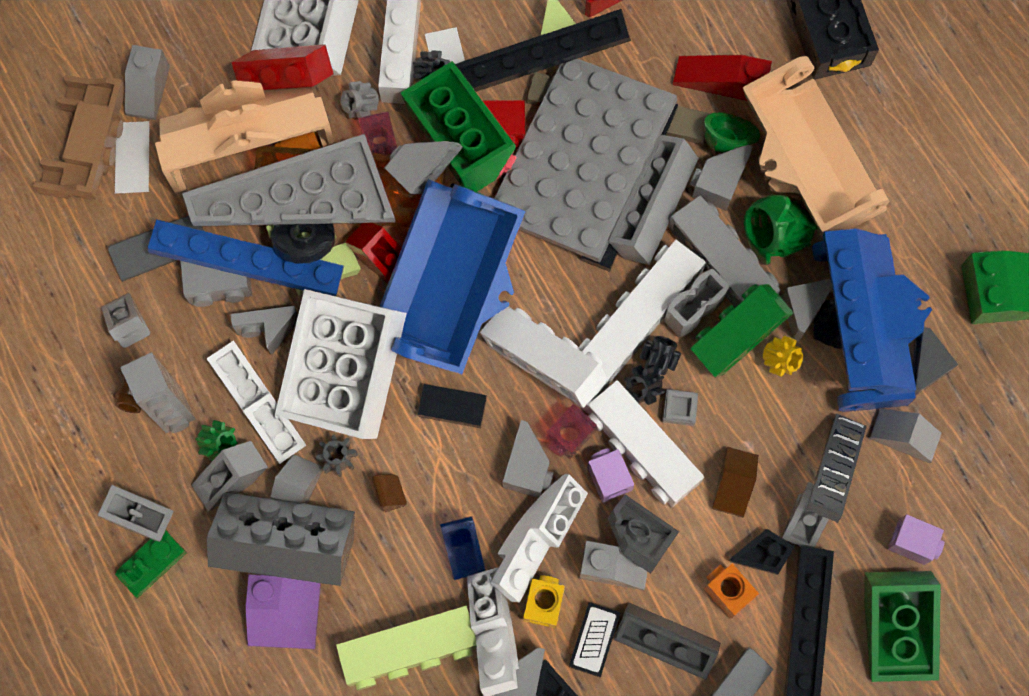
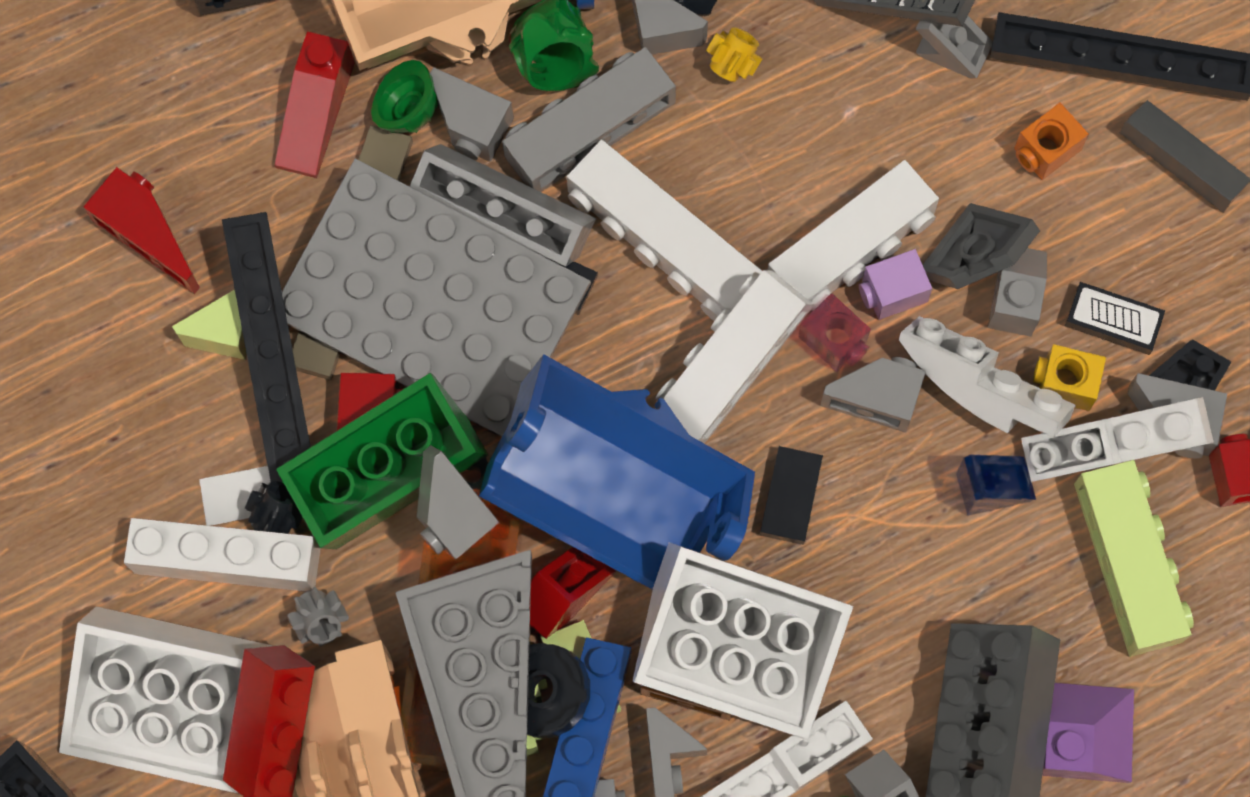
camera: 85 degrees left, 0 degrees up
(296, 480) = (902, 713): light grey slope -> none
(337, 447) = (869, 665): dark grey gear -> none
(378, 126) = (364, 578): clear pink brick -> none
(389, 492) = (916, 584): reddish brown slope -> none
(644, 384) = (770, 232): black gear -> none
(660, 354) = (729, 209): black gear -> none
(667, 641) = (1113, 226): dark grey slope -> none
(680, 407) = (798, 193): light grey tile -> none
(691, 305) = (665, 161): light grey brick -> none
(735, 482) = (901, 126): reddish brown slope -> none
(741, 329) = (703, 98): green brick -> none
(764, 553) = (998, 99): black piece -> none

